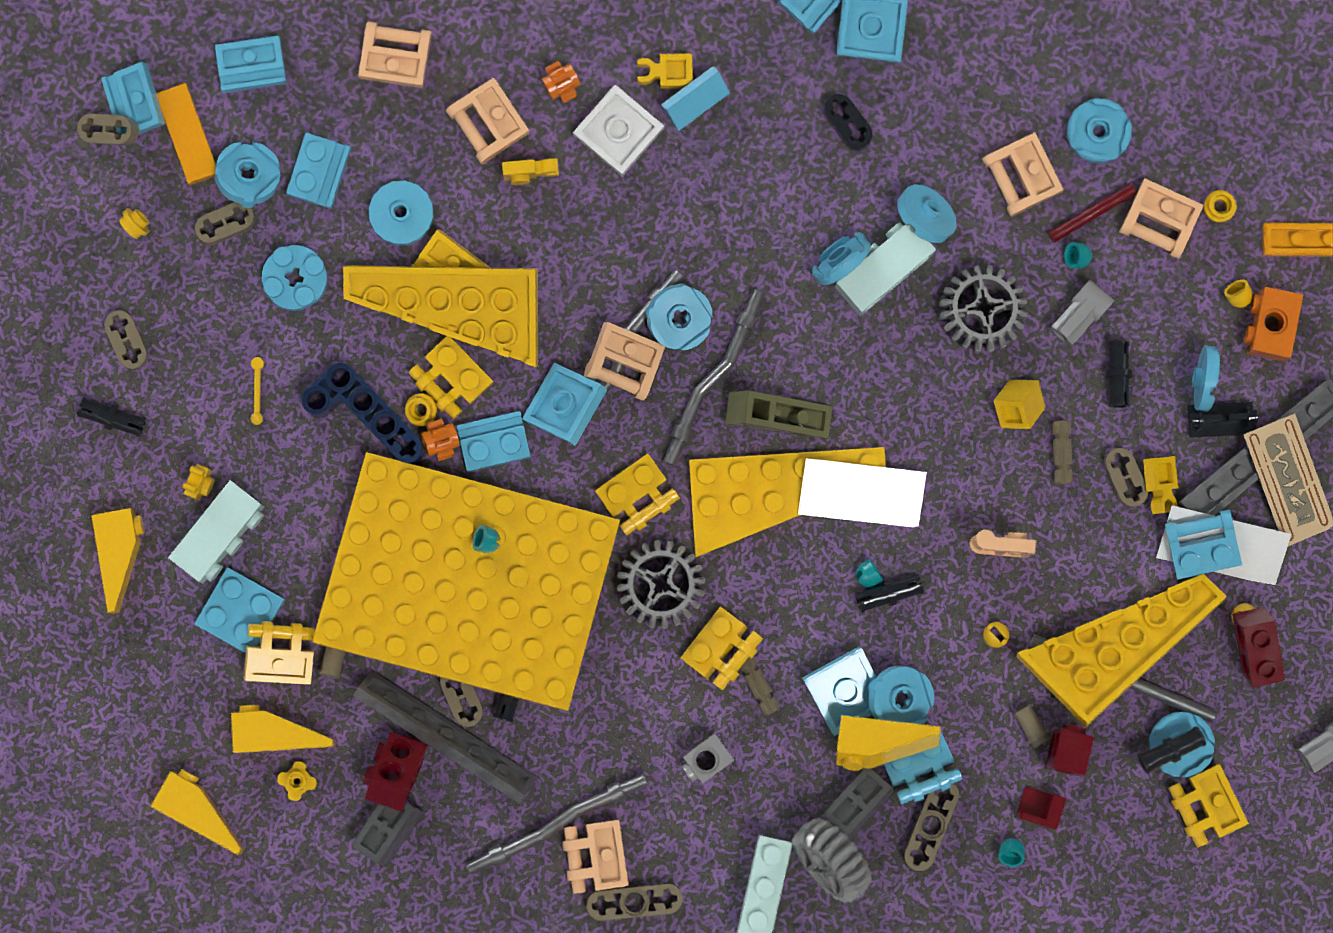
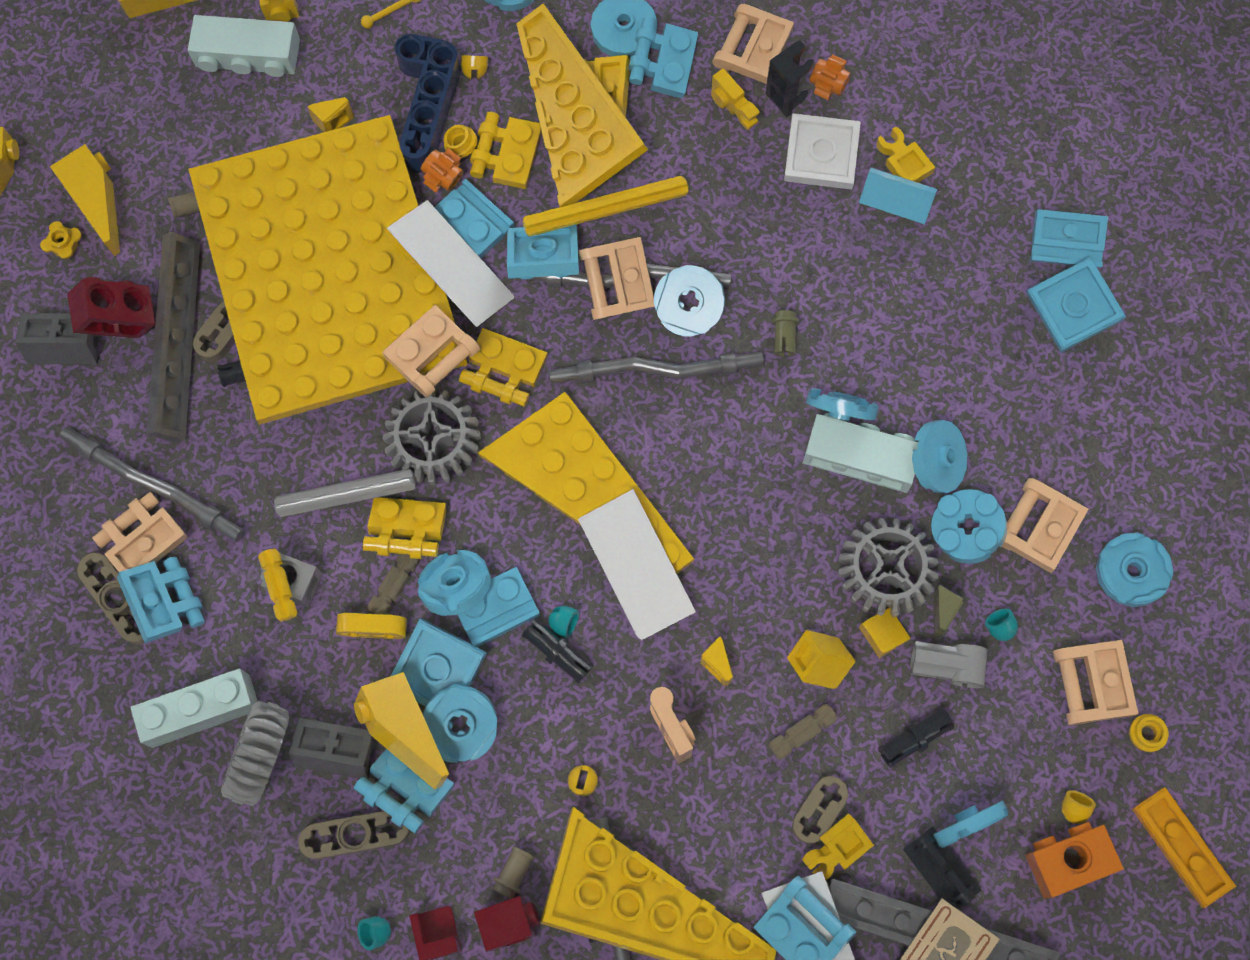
camera: 65 degrees right, 10 degrees down
(234, 606) = (187, 107): medium azure plate -> none
(279, 664) = (155, 159): yellow plate -> none
(330, 499) = (331, 114): none -> yellow slope
(356, 355) = (477, 63): none -> yellow hinge
(460, 194) = (673, 60): none -> medium azure plate
(485, 539) = (370, 249): teal hinge -> none
(528, 481) = (451, 263): none -> white sticker
(548, 121) = (784, 78): none -> black hinge
(556, 330) = (605, 206): none -> yellow axle
(590, 546) = (423, 343): none -> light nougat plate
(660, 874) = (151, 602): none -> medium azure plate
(663, 678) = (345, 492): none -> light grey axle
(713, 770) = (277, 585): none -> yellow axle
(748, 259) = (785, 332): none -> olive pin
(776, 637) = (454, 583): none -> medium azure plate
(778, 414) = (660, 444): olive slope -> none
(782, 720) = (371, 626): none -> yellow beam
(825, 618) = (501, 609): none -> medium azure plate
(854, 118) = (965, 337): black beam -> none
(972, 230) = (984, 540): none -> medium azure plate
(973, 480) = (717, 663): none -> yellow slope
(1029, 344) = (884, 633): none -> yellow slope
(1042, 290) = (945, 608): none -> olive slope
(1092, 213) = (1052, 614): dark red bar -> none

